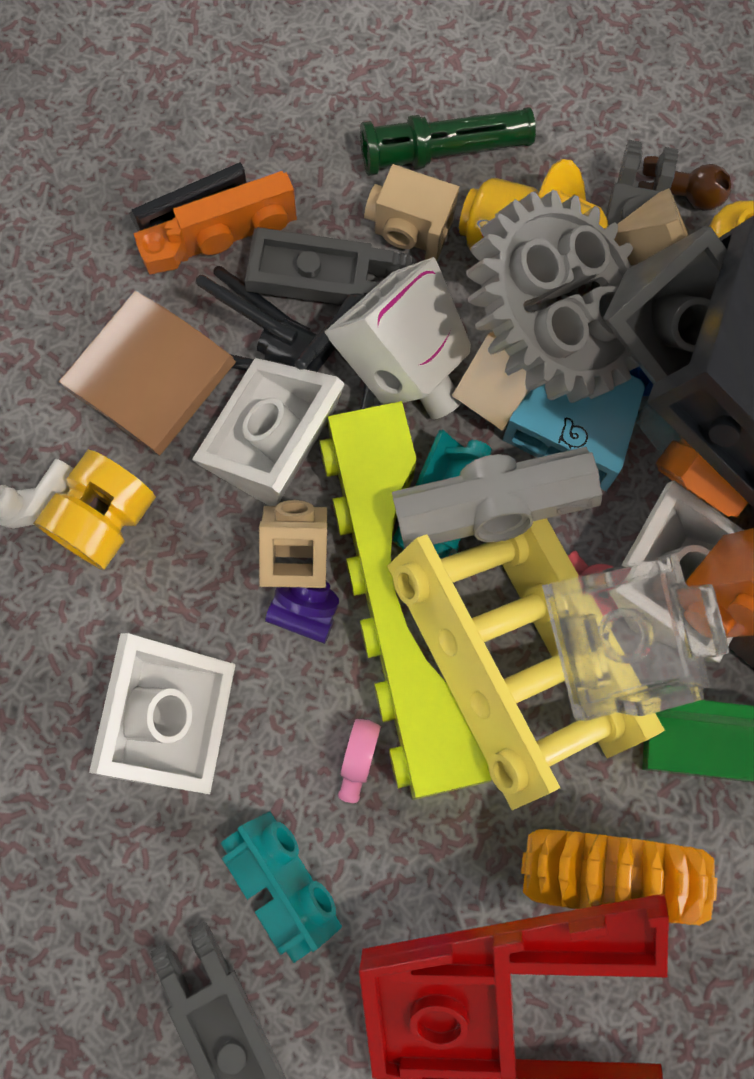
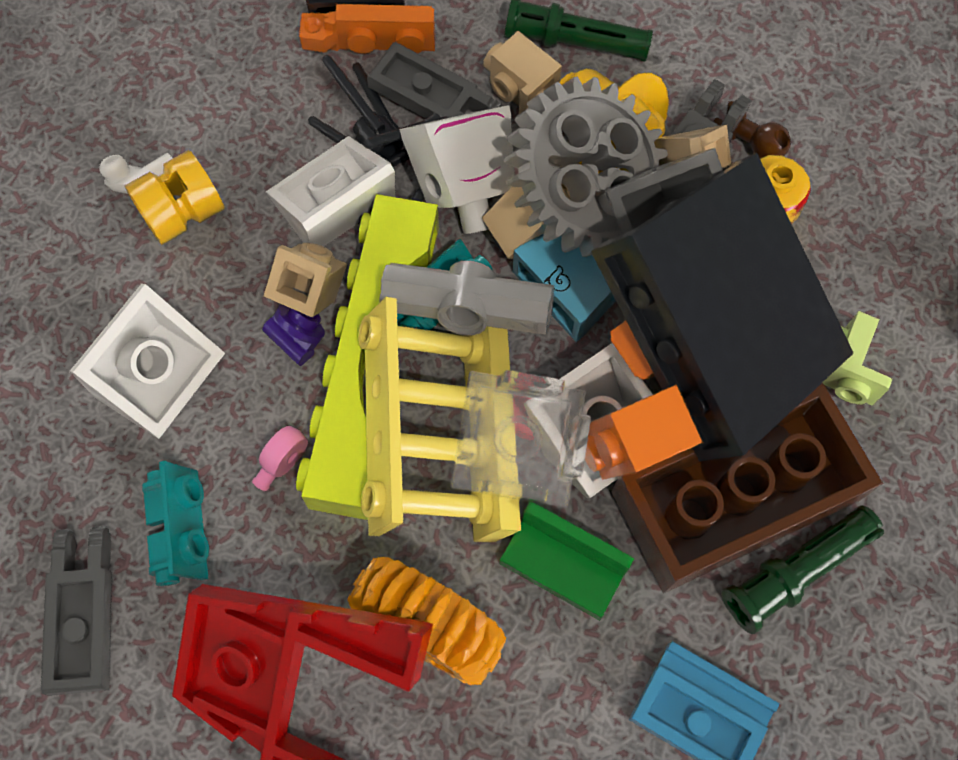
camera: 25 degrees right, 5 degrees down
(147, 372) = (264, 117): medium nougat slope -> none

